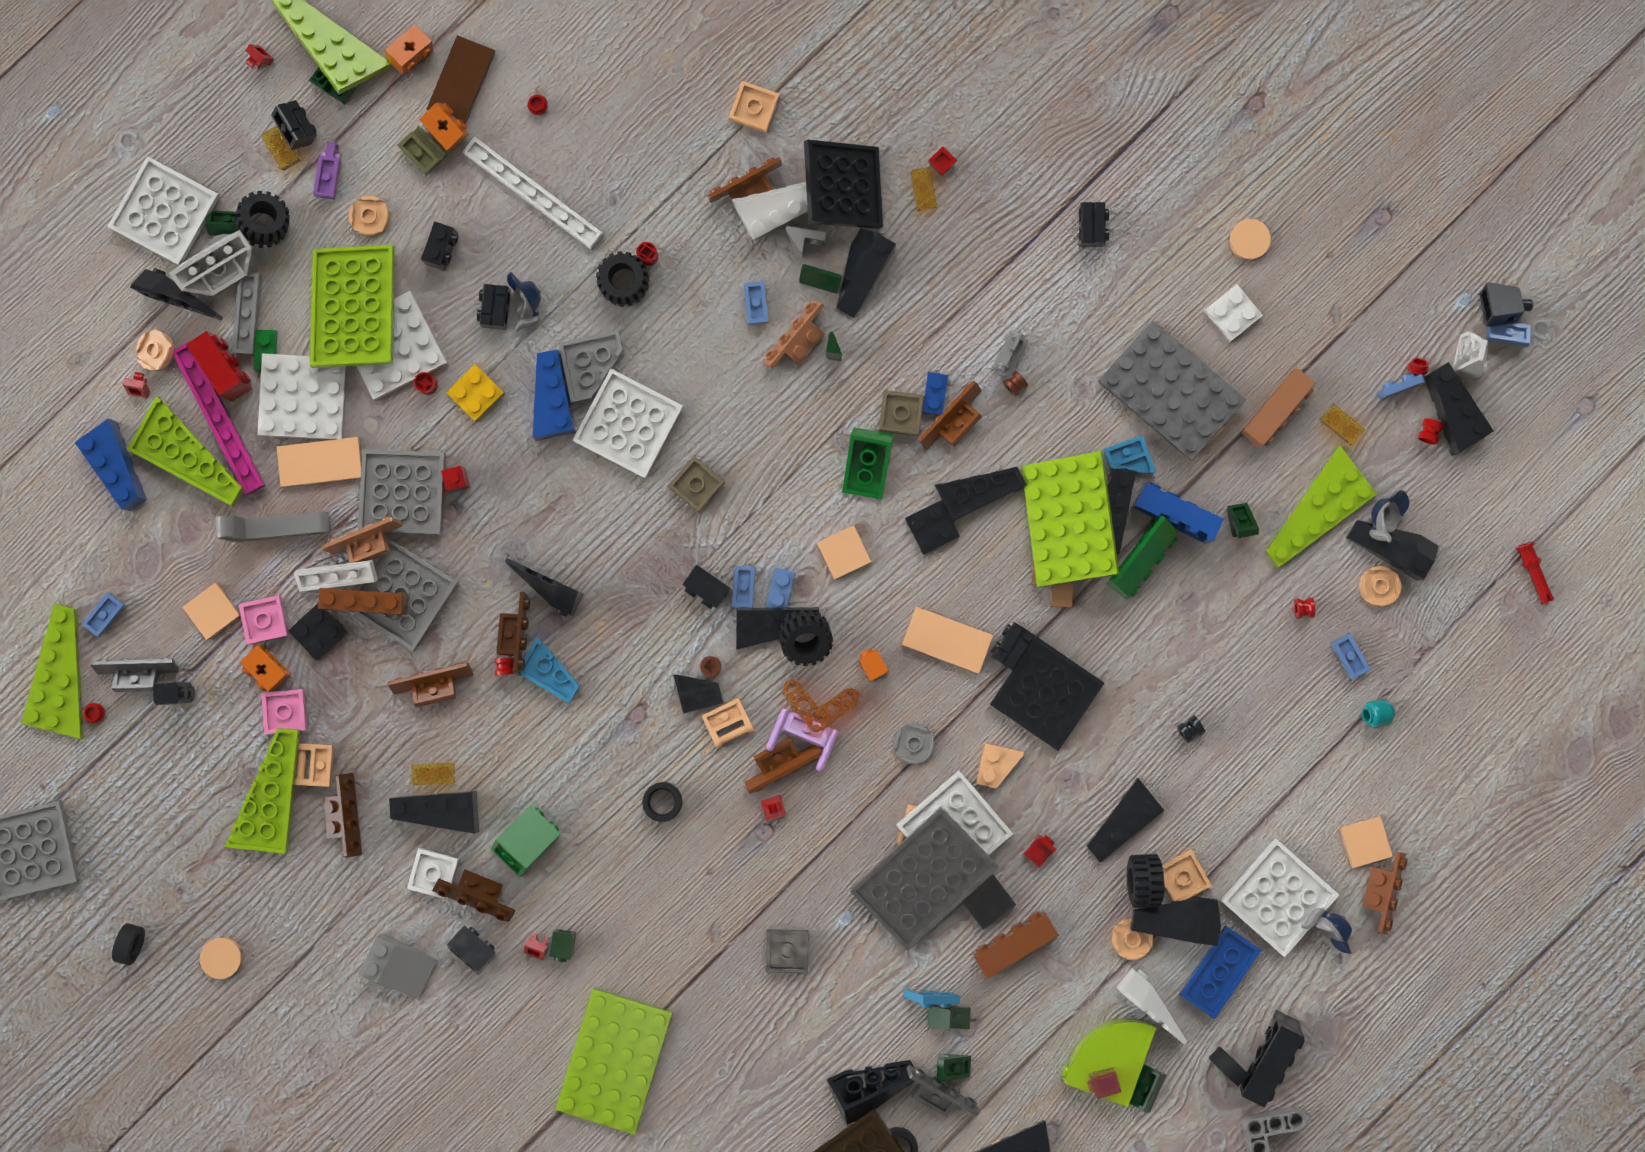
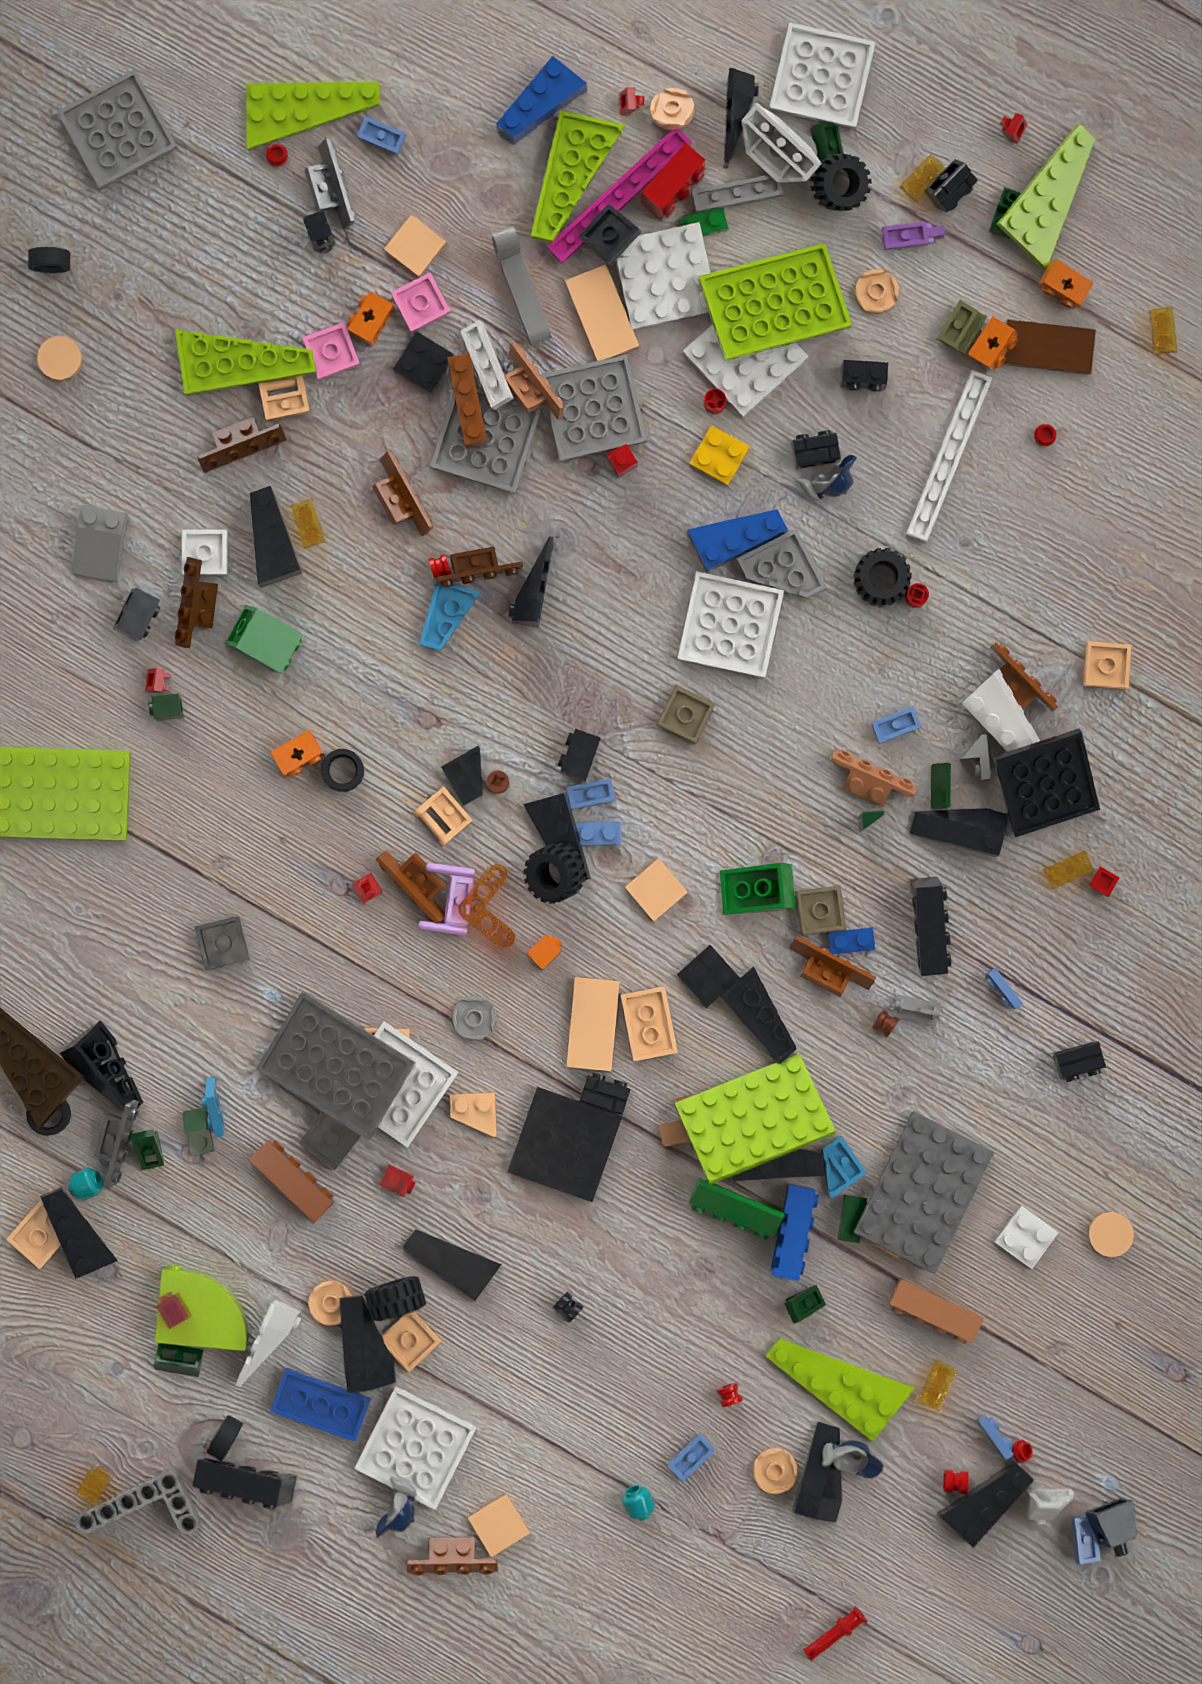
camera: 70 degrees right, 0 degrees up
(249, 434) = (609, 234): none -> black plate
(633, 849) = (284, 754): none -> orange brick
(941, 320) = (930, 926): none -> black wedge
(960, 590) = (649, 1023): none -> light nougat plate
(969, 1131) = (85, 1184): none -> teal head
(1004, 277) = (1009, 997): none -> medium blue plate
(1177, 461) = (850, 1215): none -> dark green slope

